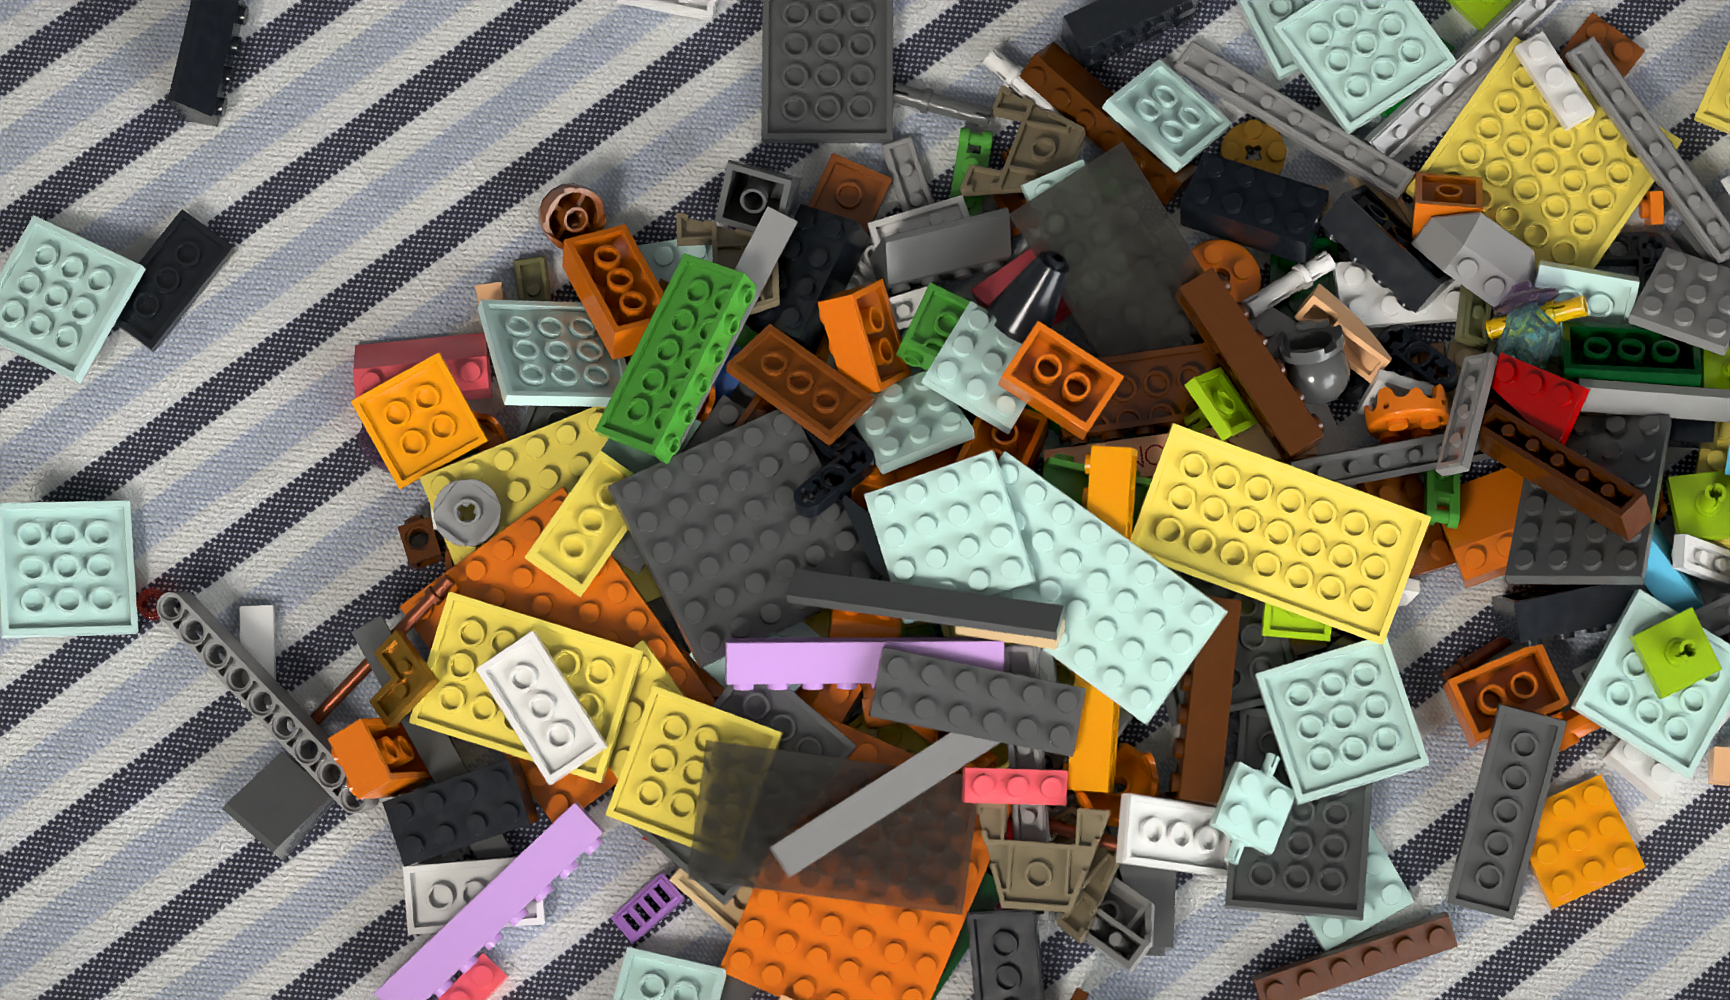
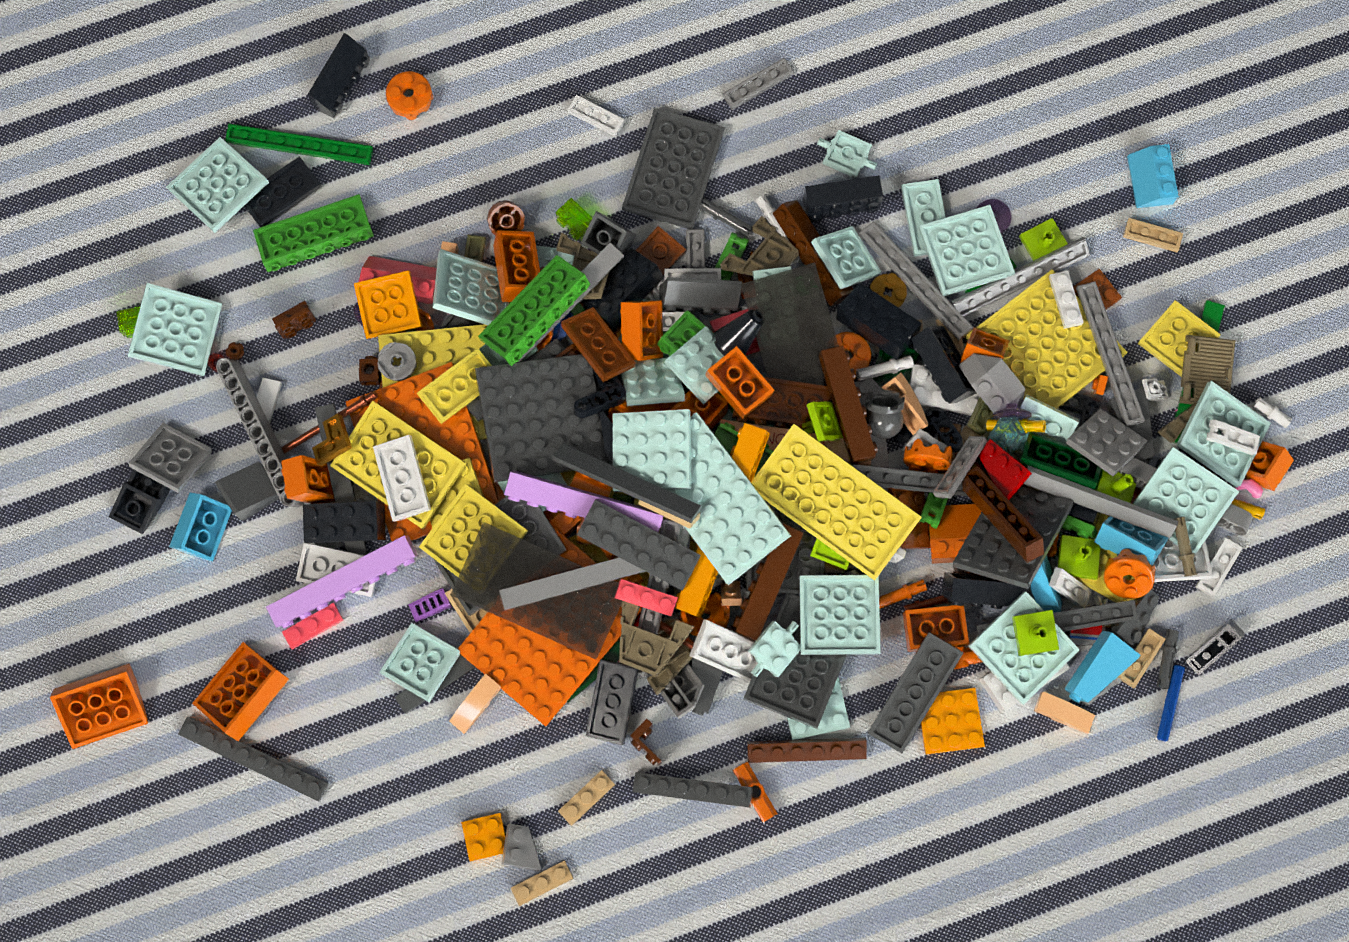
camera: 15 degrees right, 0 degrees up
(97, 874) = (139, 502): none -> black slope
(127, 789) = (170, 457): none -> light grey plate
(172, 188) = (299, 144): none -> green tile
(185, 579) = (238, 354): none -> reddish brown plate
(216, 891) = (201, 526): none -> medium azure slope
(247, 334) = (313, 233): none -> bright green bracket
(262, 492) = (294, 320): none -> reddish brown bracket
(345, 69) = (413, 105): none -> orange plate
(689, 182) = (574, 218): none -> clear neon green brick
(1149, 739) = (731, 594): none -> medium nougat plate
(1437, 649) = (906, 591): none -> orange pin
(1699, 457) = (1084, 529): none -> bright green plate

